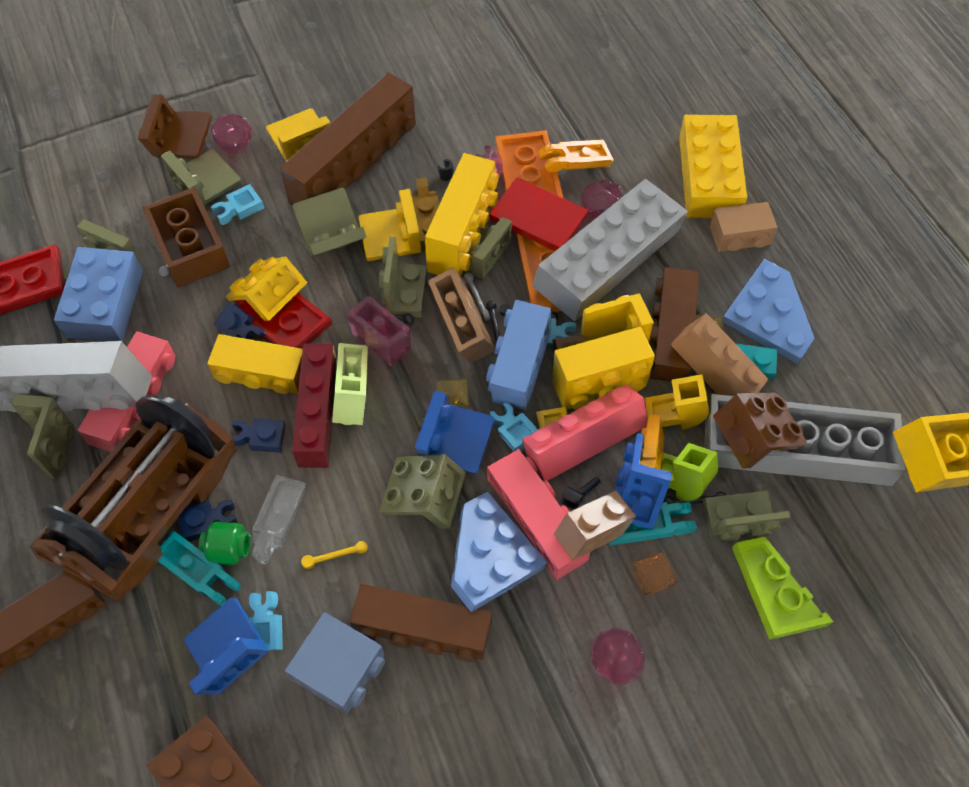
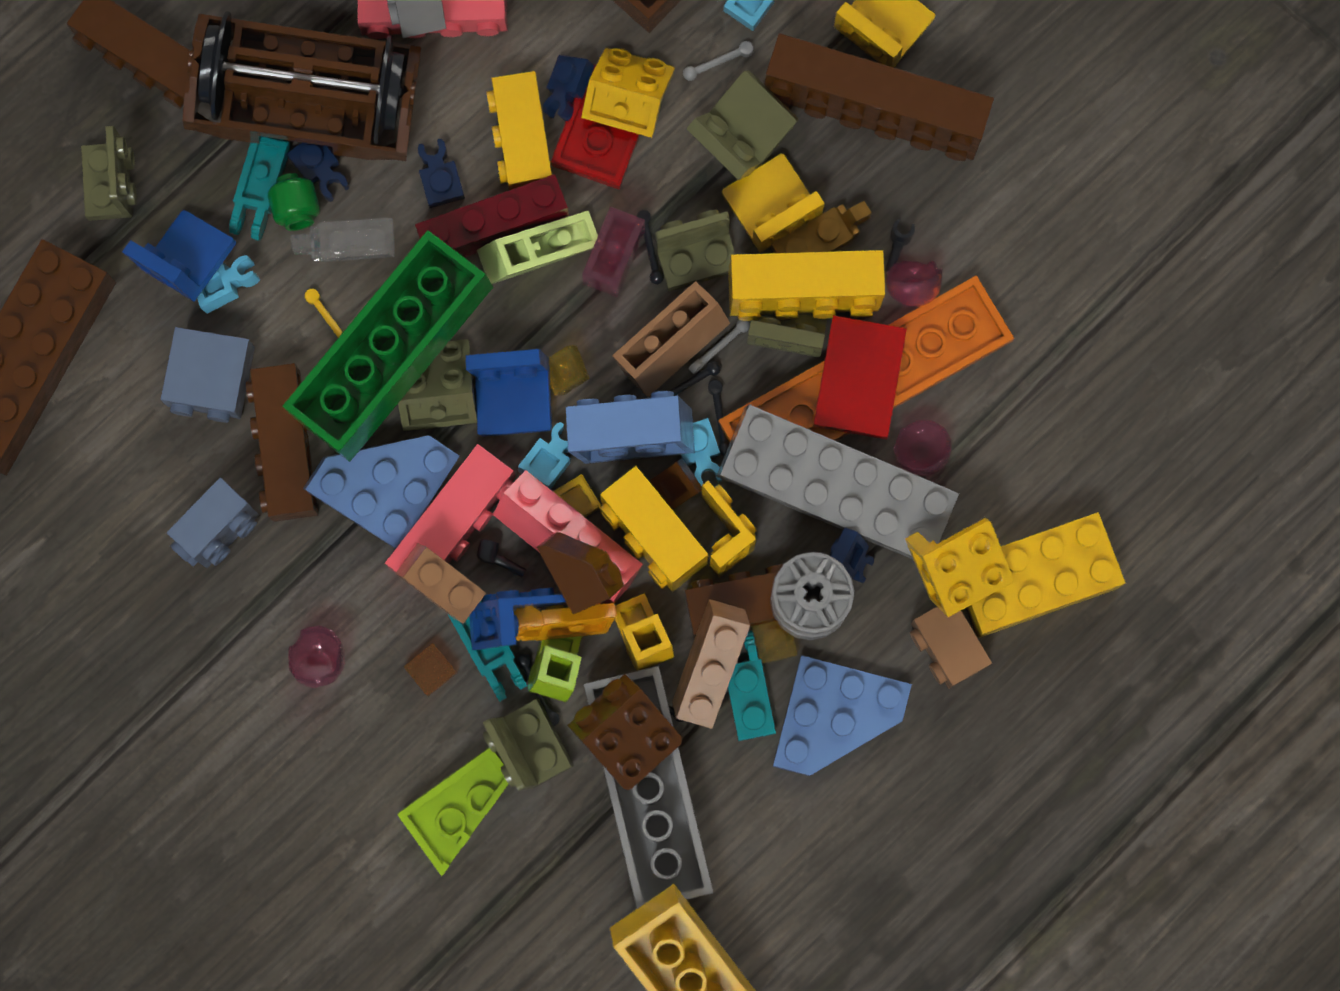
camera: 70 degrees right, 20 degrees up
(122, 690) = (107, 178): none -> olive bracket
(273, 218) = (745, 49): none -> light grey hinge
(386, 495) = (388, 345): none -> green brick
(473, 703) = (212, 526): none -> sand blue brick
(576, 155) = (984, 395): light orange hinge -> none
(625, 413) = (580, 571): none -> reddish brown slope
(663, 255) = (851, 552): none -> dark blue plate
(693, 274) = (812, 618): none -> light grey wheel
(705, 195) = (961, 567): none -> yellow bracket

